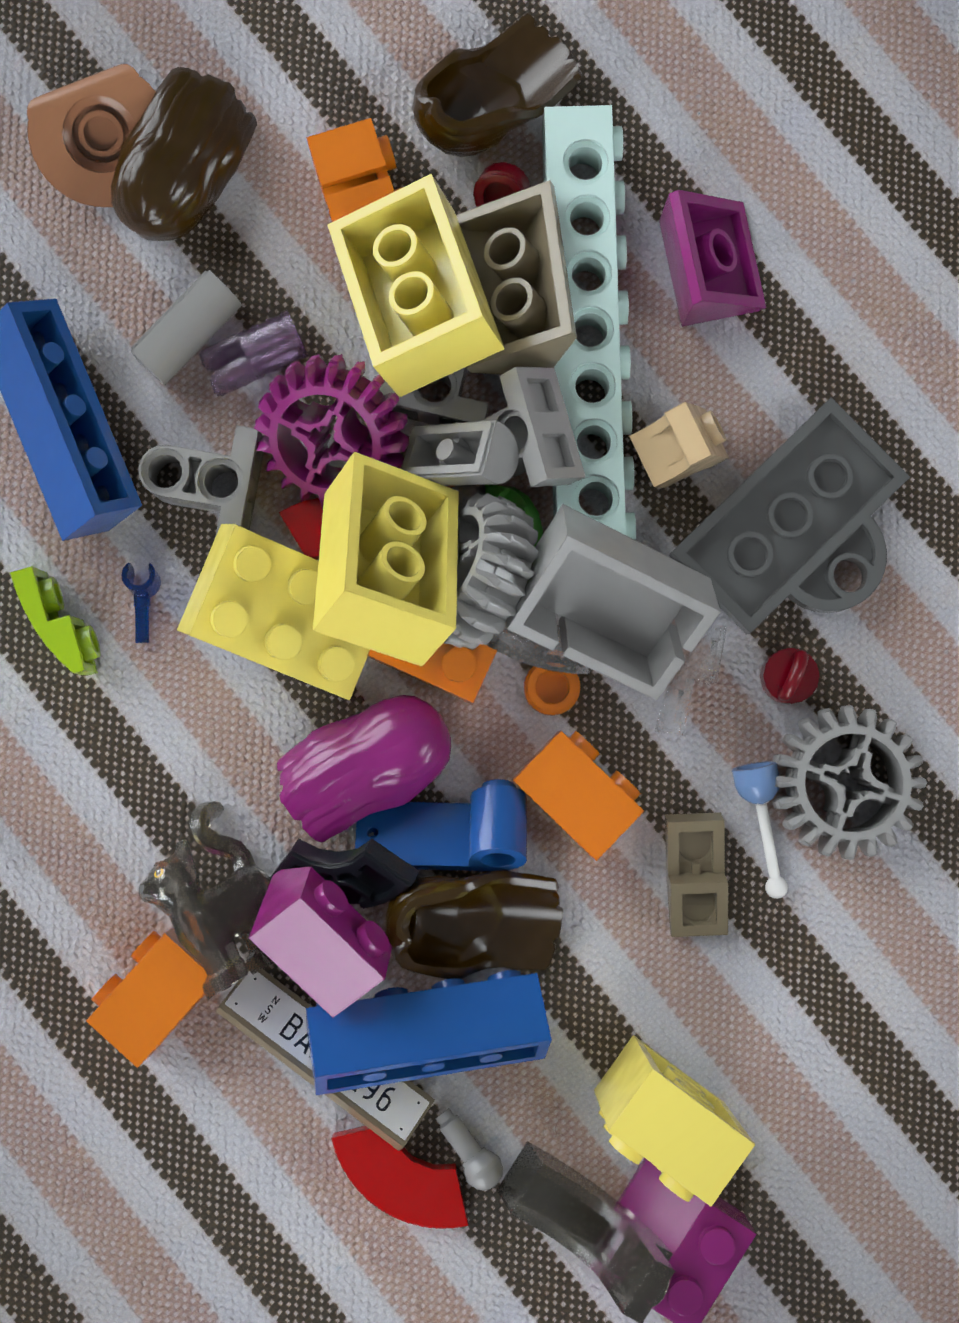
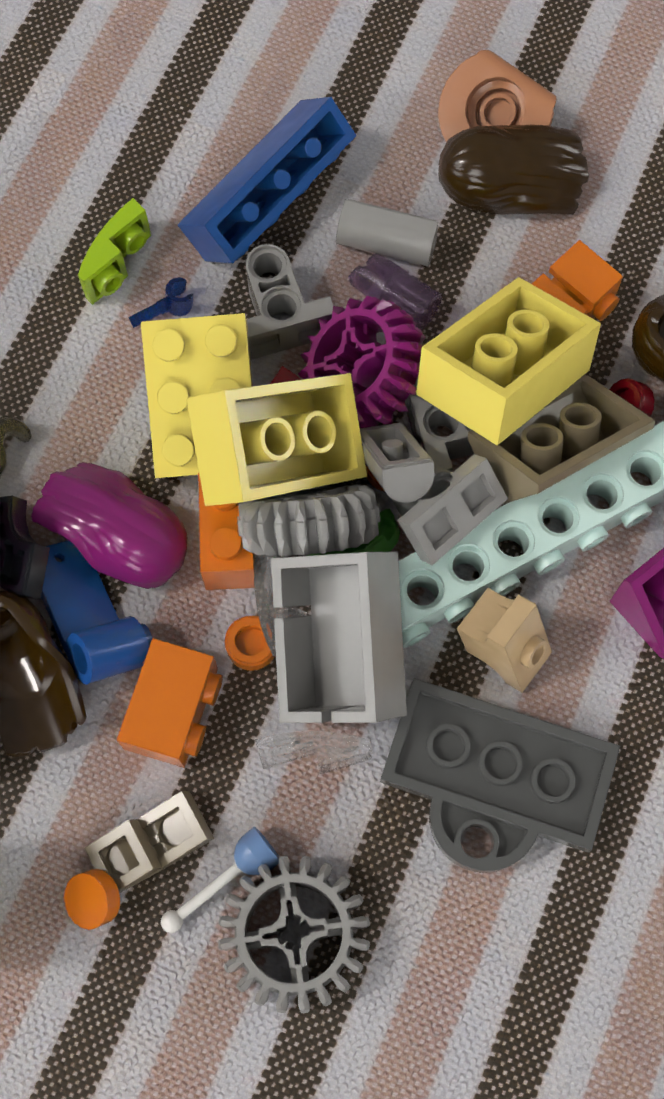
camera: 70 degrees right, 15 degrees down
(724, 950) = (92, 899): none -> orange tile
(789, 676) = (363, 837): dark red tile -> none

